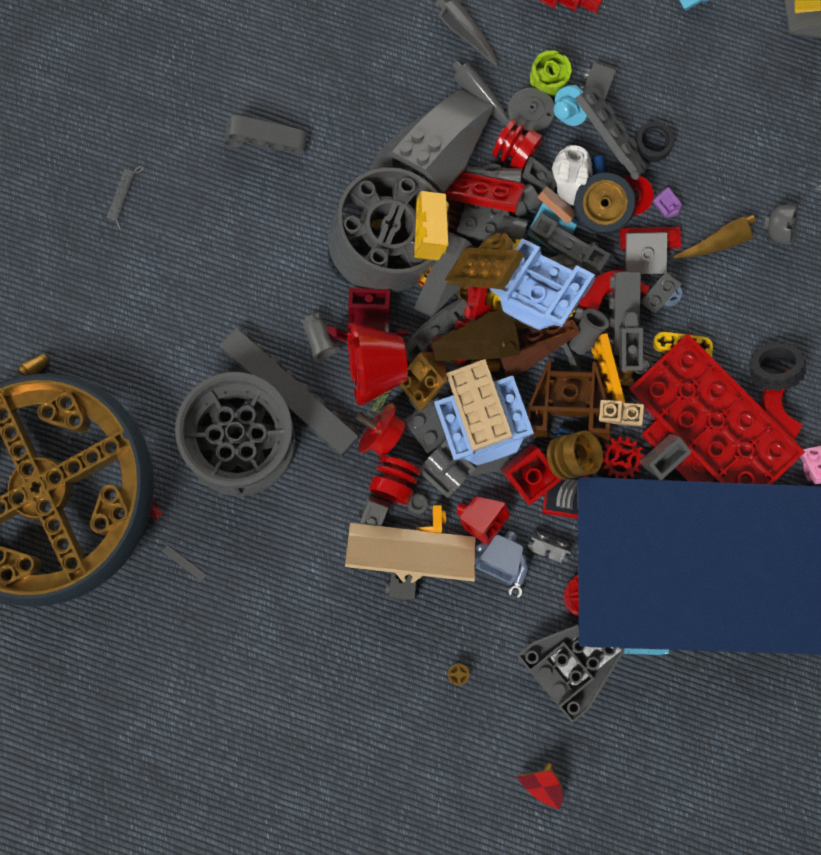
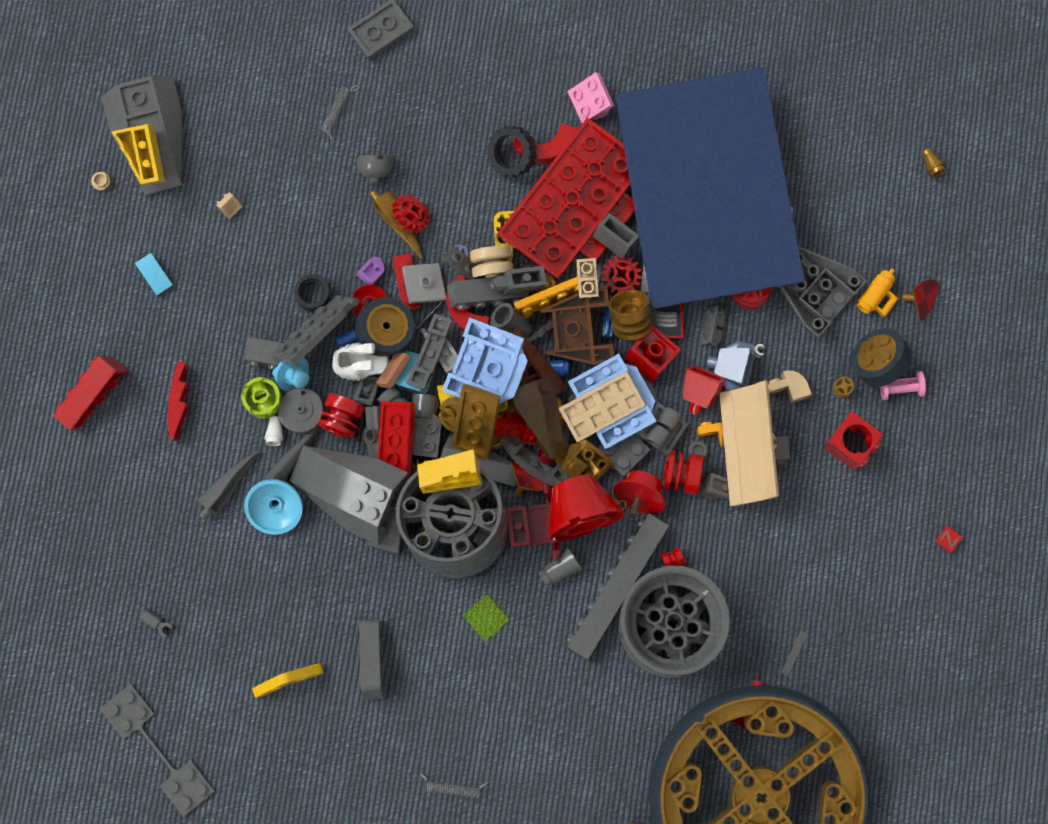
camera: 90 degrees left, 0 degrees up
(260, 56) = (287, 678): none -> yellow beam
(270, 754) = (948, 539): none -> red tile
(285, 257) = (485, 617): none -> clear neon green piece
(306, 454) = (673, 558): none -> red wheel
(414, 670) = (836, 446): none -> red brick
(415, 317) = (525, 481): none -> shield
(436, 66) = (272, 517): none -> medium azure dish
(448, 739) = (905, 385): none -> bright pink hose
(469, 621) = (793, 383): none -> tan brick
(482, 719) = (881, 357): none -> wheel
(513, 82) = (274, 432): none -> white cone
(532, 376) = (561, 366): none -> blue cone
(559, 734) = (876, 292): none -> light orange piece
(656, 321) = (491, 261): none -> tan wheel
(697, 833) = (933, 163): none -> pearl gold cone
(724, 251) = (410, 213): none -> red gear
(760, 74) = (229, 205): none -> tan tile

